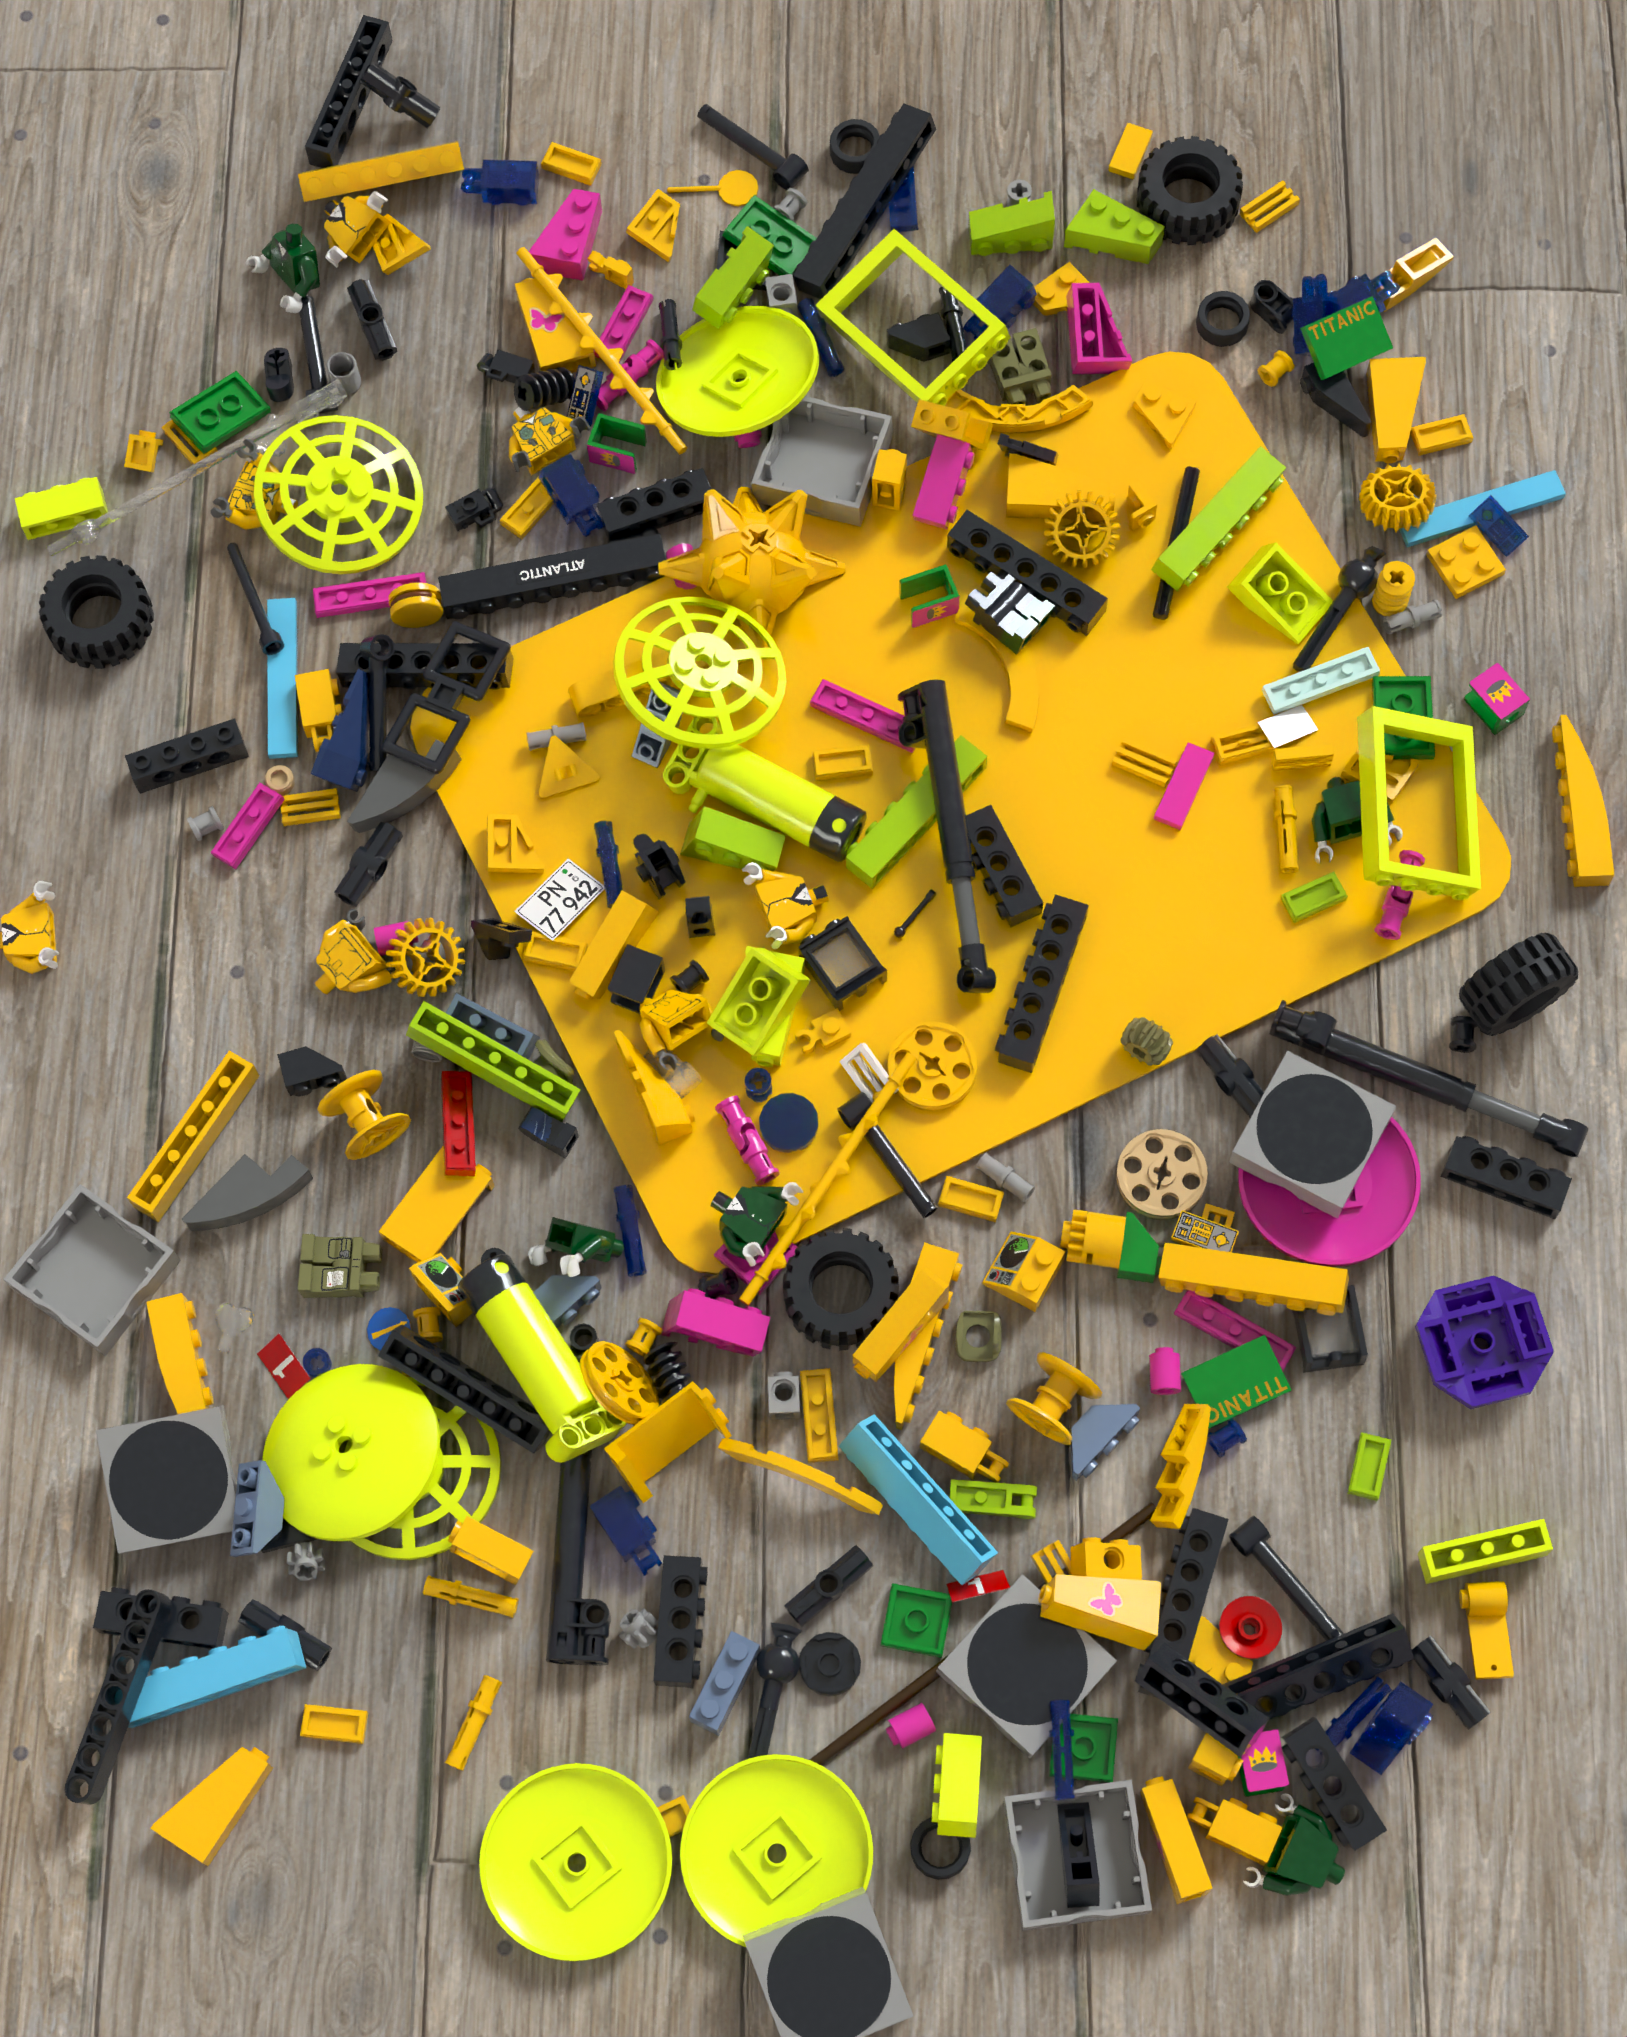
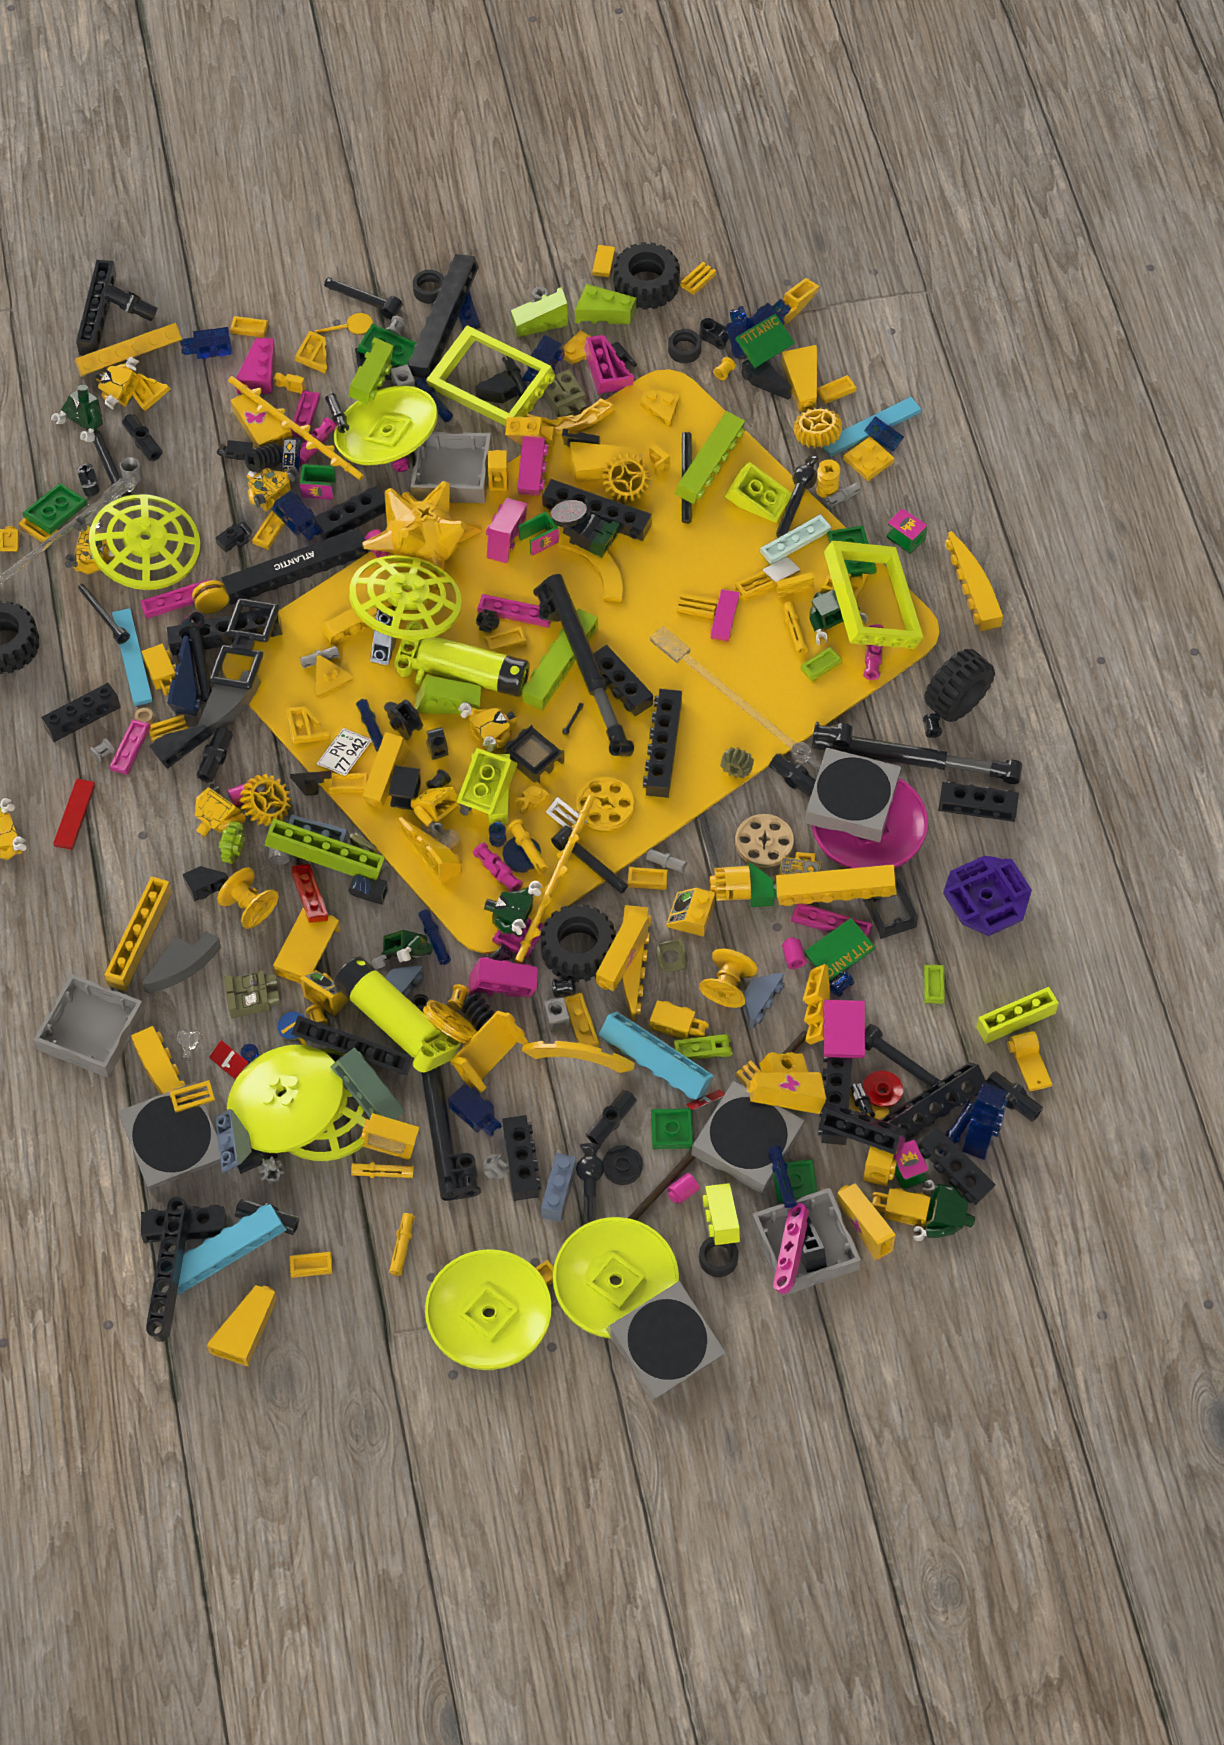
camera: 15 degrees left, 10 degrees down
(144, 918) = (74, 814): none -> red tile
(235, 1427) = (192, 1104): none -> yellow tile
(310, 840) = (176, 745): none -> black slope
(360, 1017) = (232, 842): none -> lime gear
(473, 1465) = (366, 1086): none -> sand green brick
(795, 1102) = (523, 839): none -> yellow pin
(804, 1354) = (564, 986): none -> black bush
(820, 727) = (487, 620): none -> black gear
(879, 578) = (504, 529): none -> dark pink wedge
(980, 575) = (569, 513): none -> tile
(1043, 1888) = (789, 1260): none -> dark pink piece
(1099, 833) = (679, 650): none -> clear bar
(1123, 317) = (622, 354): none -> black hinge
(1212, 1520) = (844, 1028): none -> dark pink tile
(1214, 1643) = (862, 1101): none -> black axle

